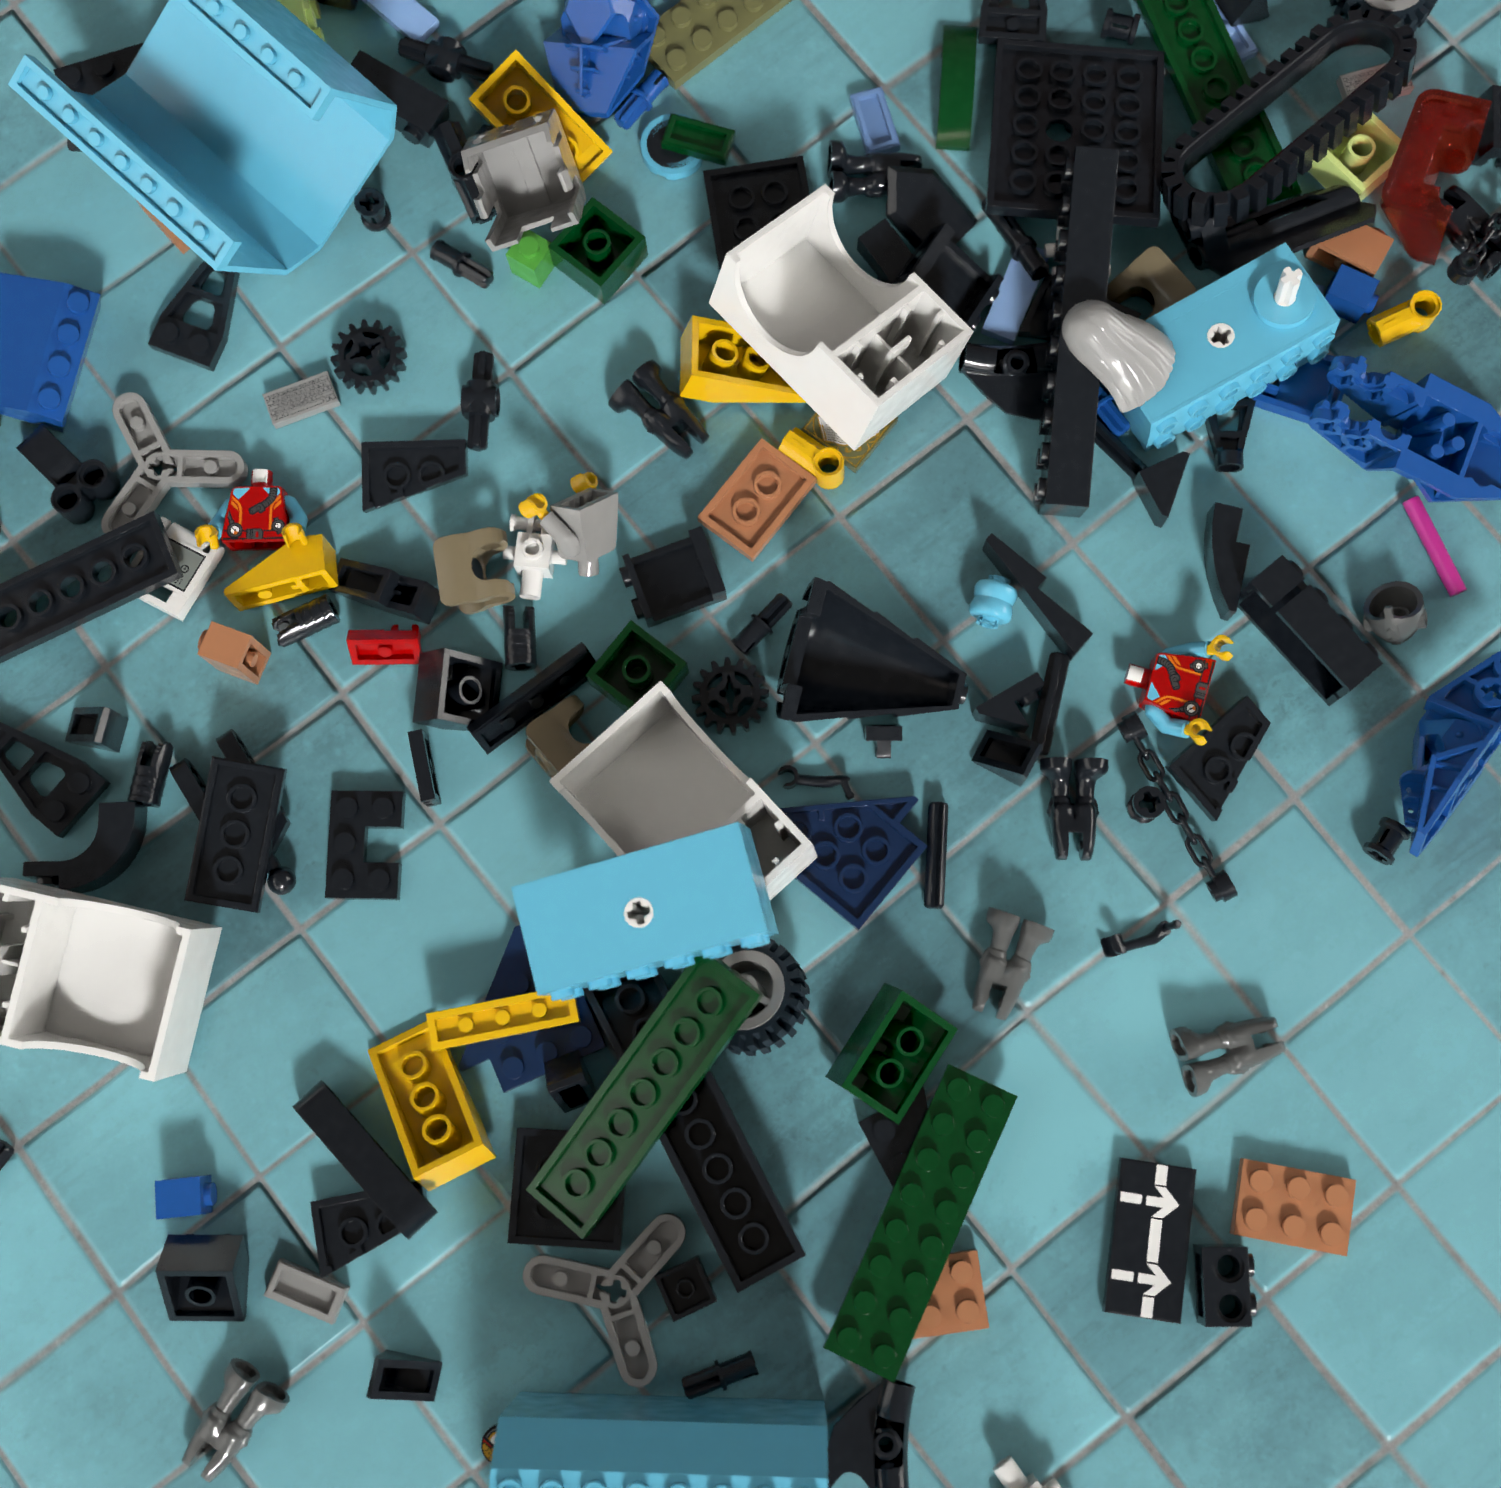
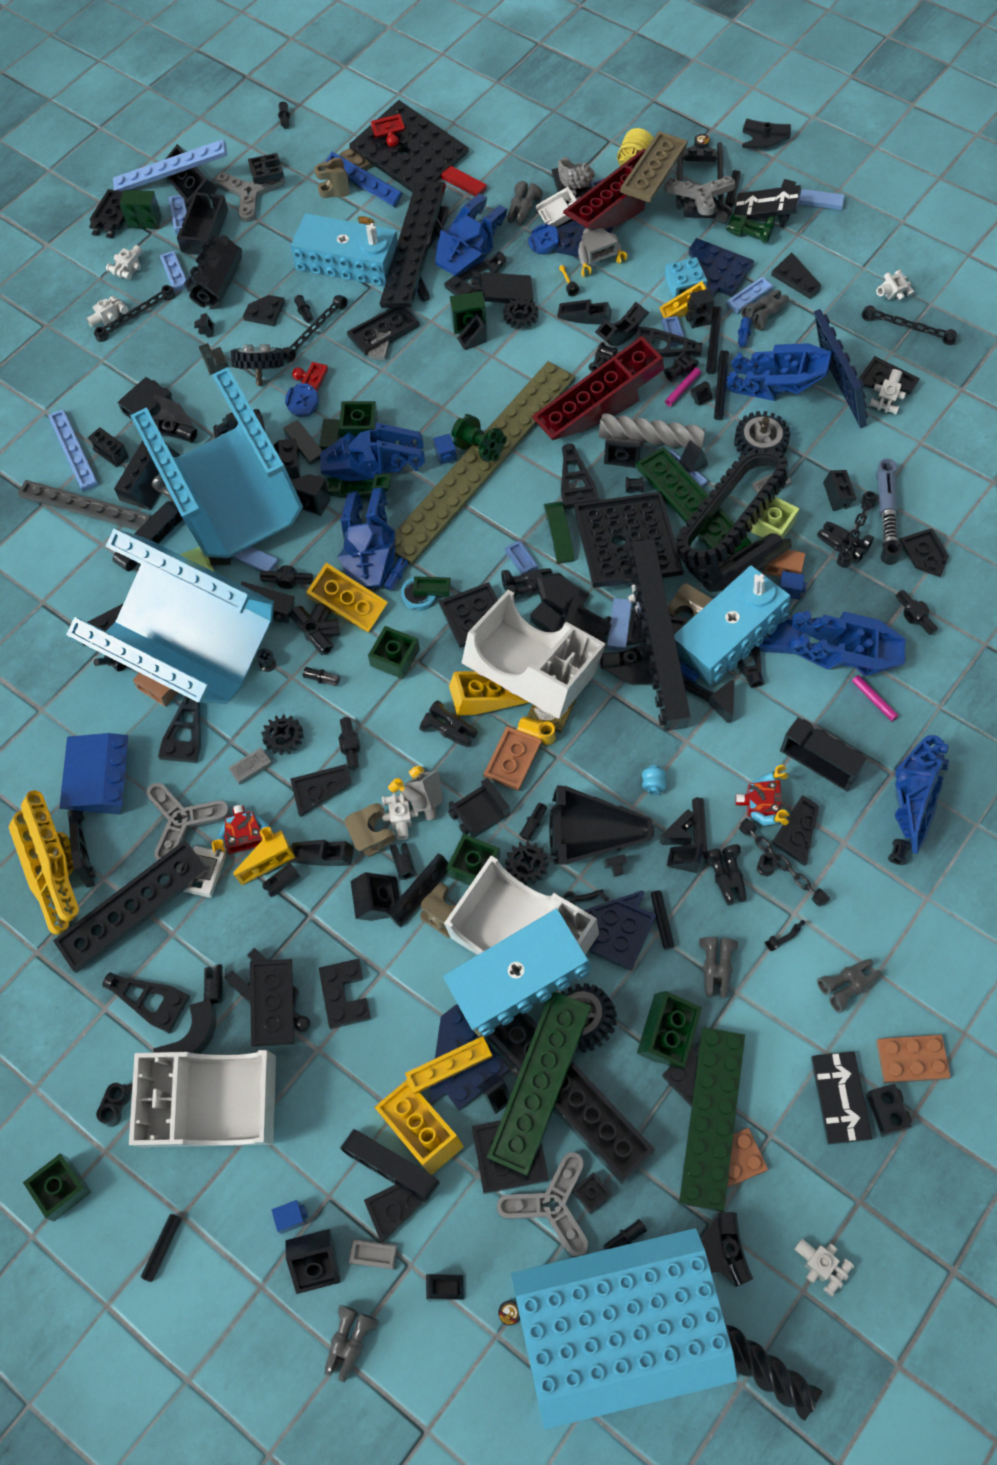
camera: 15 degrees left, 15 degrees down
(69, 475) = (129, 834): black piece -> none
(97, 728) = (176, 966): black slope -> none
(233, 652) = (246, 904): nougat brick -> none
(384, 647) = (329, 882): red plate -> none
(424, 768) = (368, 942): black tile -> none
(526, 177) = (348, 623): light grey piece -> none
(531, 258) = (358, 664): bright green brick -> none
(1021, 246) = (615, 599): black pin -> none
(1060, 626) = (692, 783): black slope -> none
(1120, 351) = (683, 635): light grey hair -> none
(1224, 557) = (768, 728): black slope -> none
(1395, 612) = (865, 734): dark grey helmet -> none
(1404, 319) = (822, 590): yellow piece -> none
(1437, 138) = (812, 500): clear red windscreen -> none

